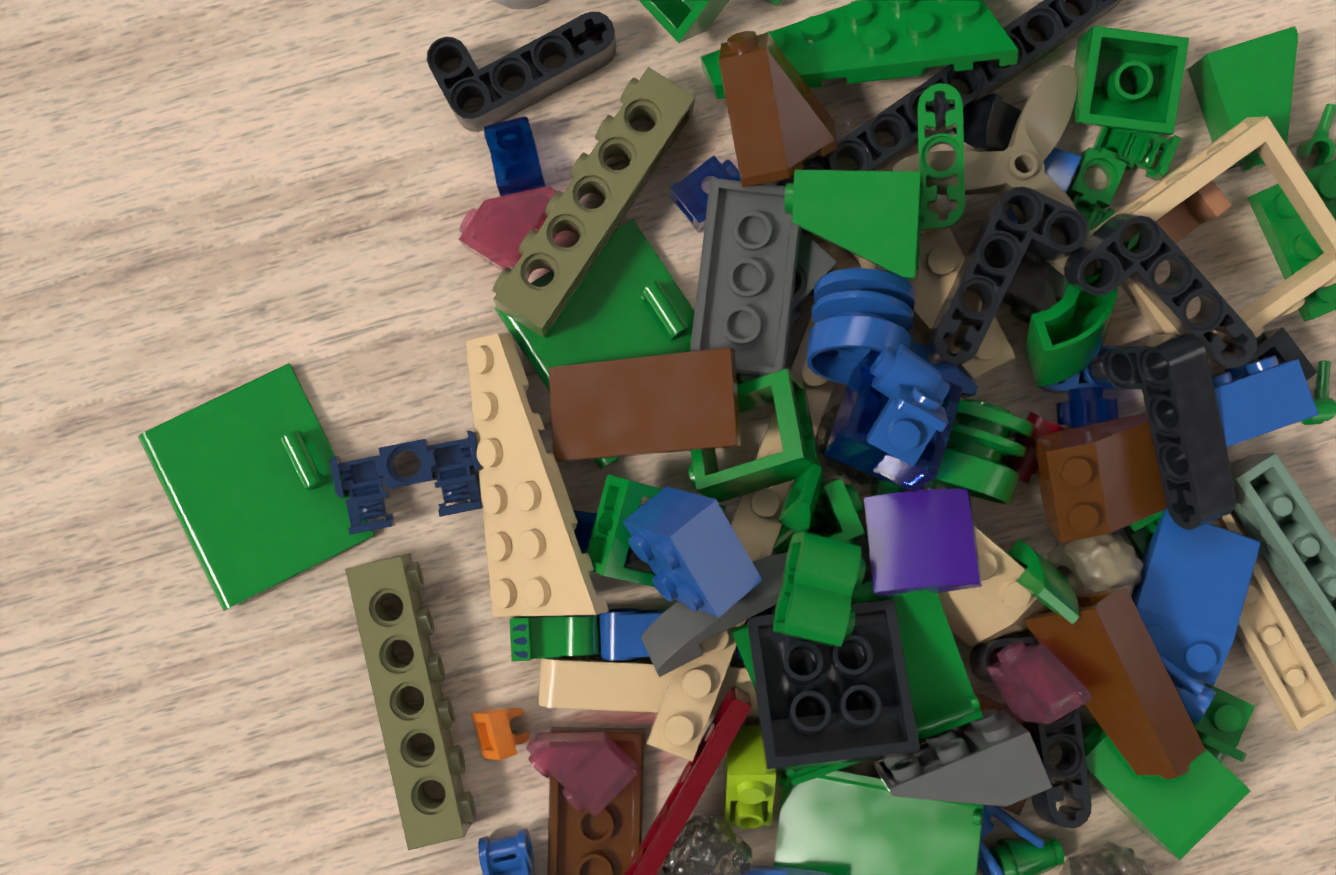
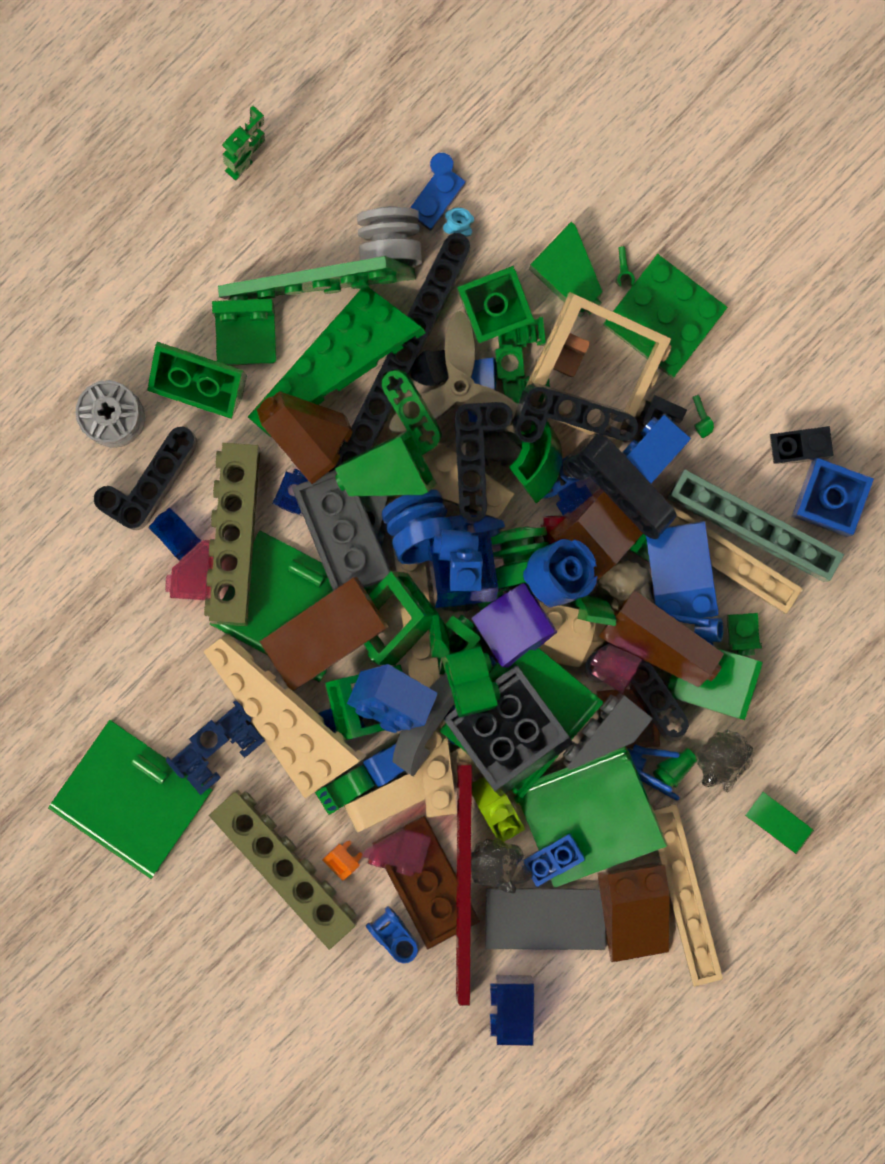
camera: 30 degrees left, 0 degrees up
(1035, 503) = (561, 572): none -> blue brick

